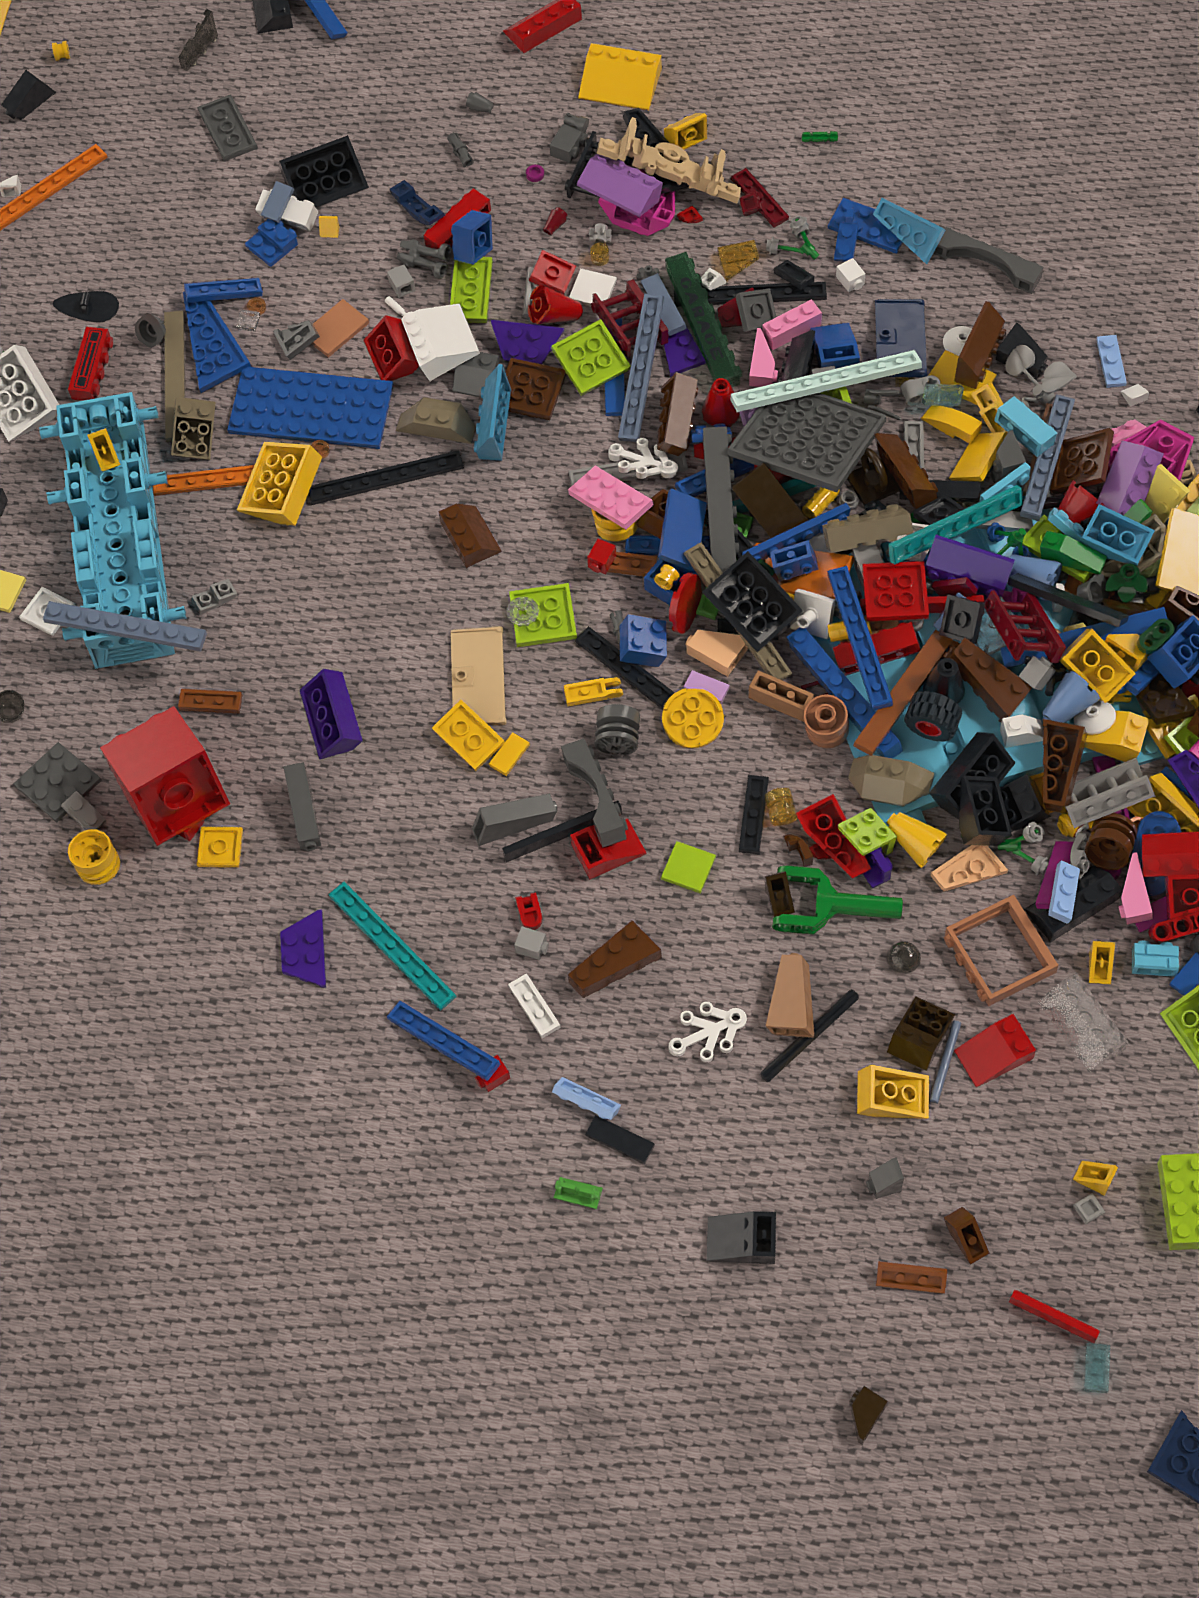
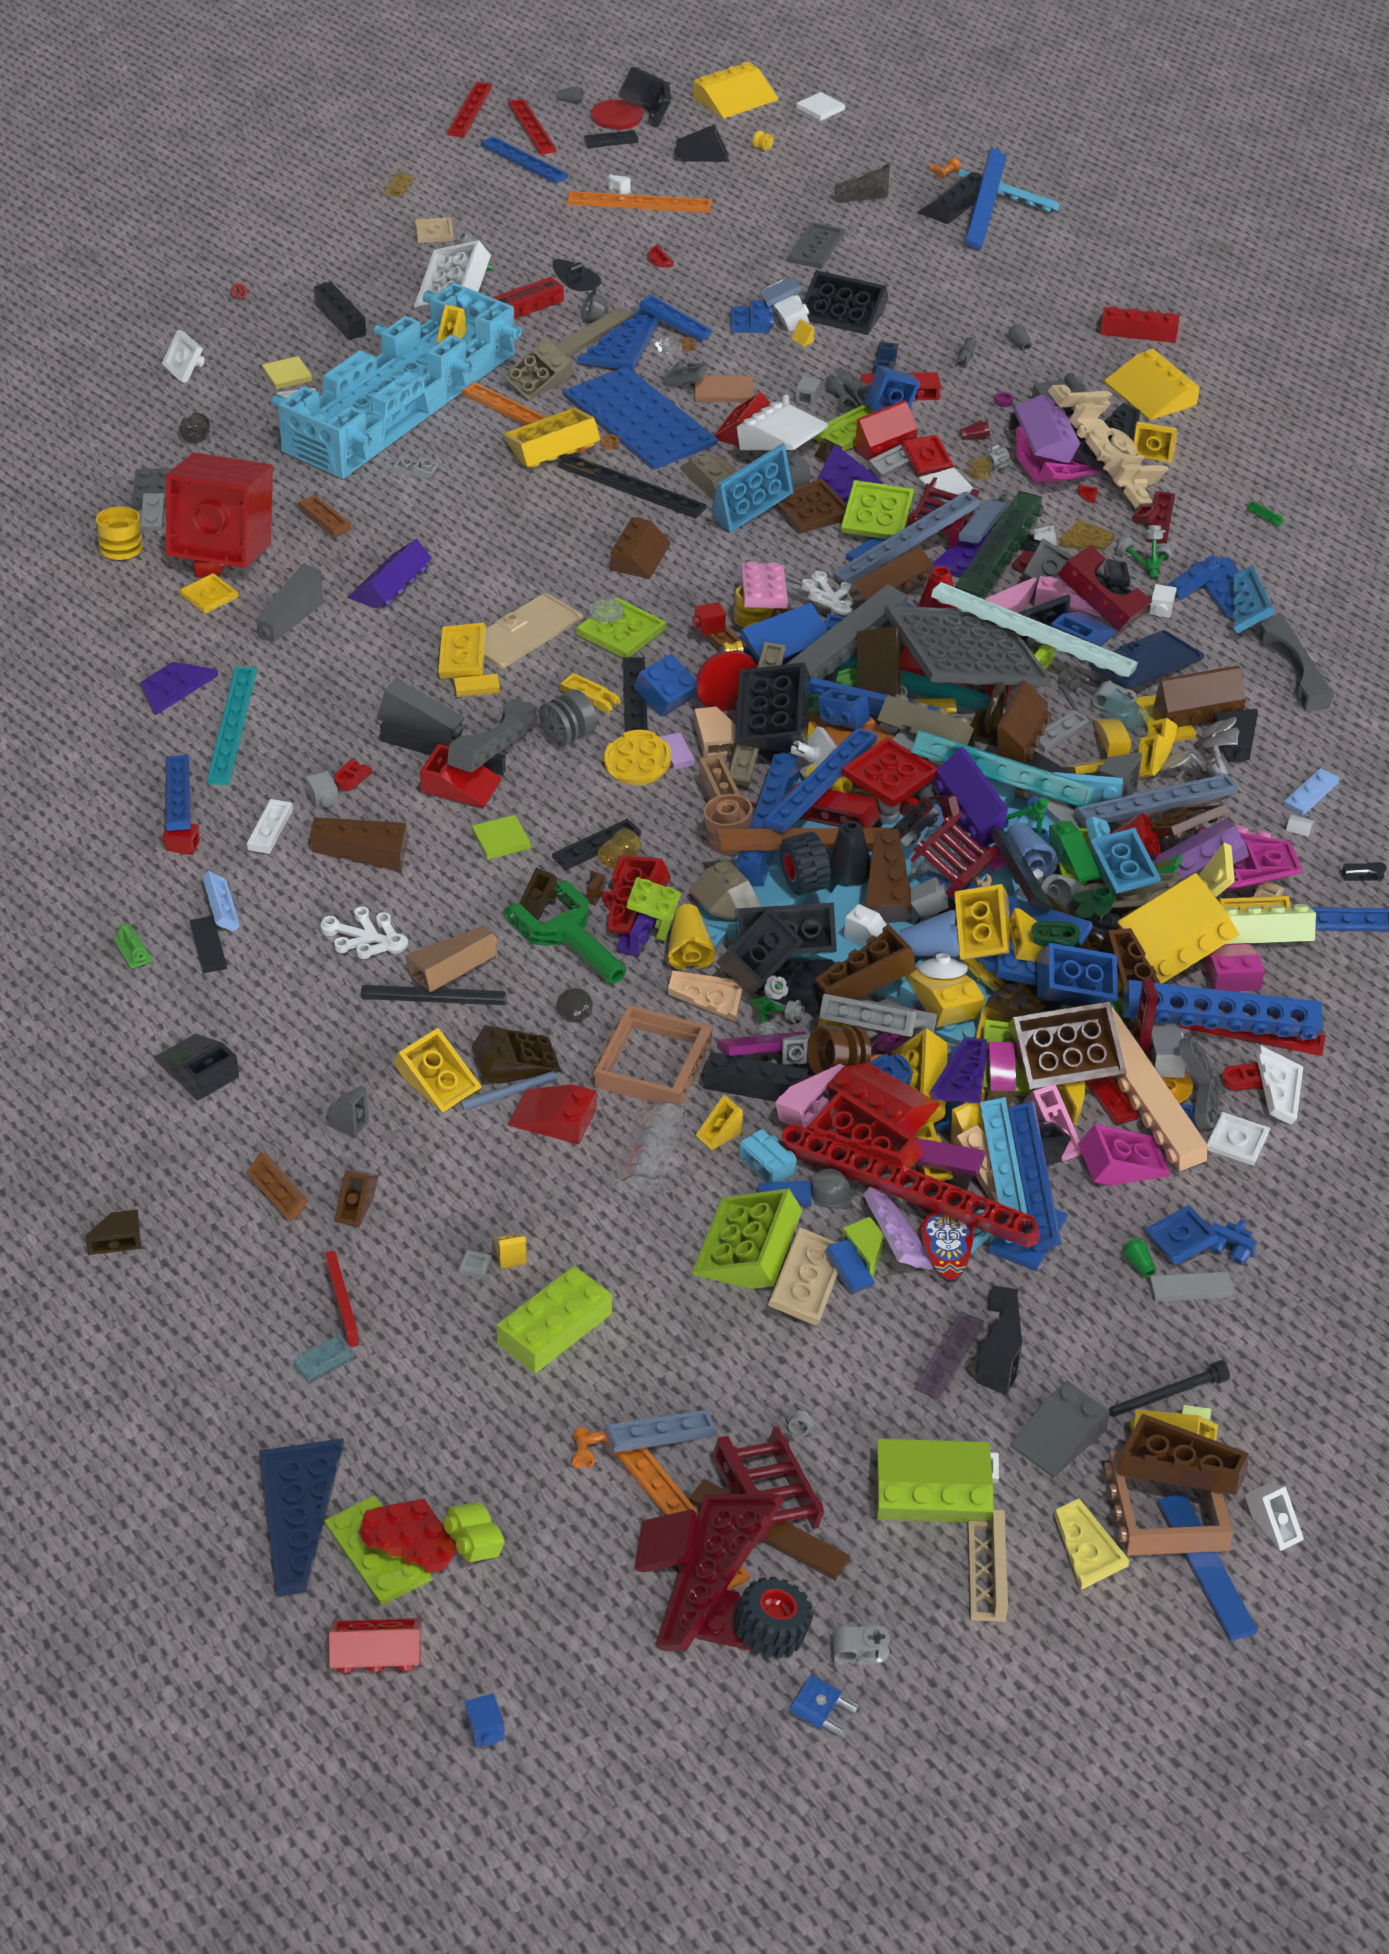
camera: 40 degrees right, 20 degrees down
(124, 626) = (314, 413): sand blue plate -> none
(128, 237) = (659, 258): none -> red tile
(481, 327) = (825, 449): none -> dark brown tile
(507, 278) = (884, 430): none -> slope
(552, 307) = (895, 467): red cone -> none
(798, 305) = (1114, 608): none -> dark red arch
(1026, 425) = (1160, 762): medium azure brick -> none
(1064, 892) = (747, 1045): light blue plate -> none

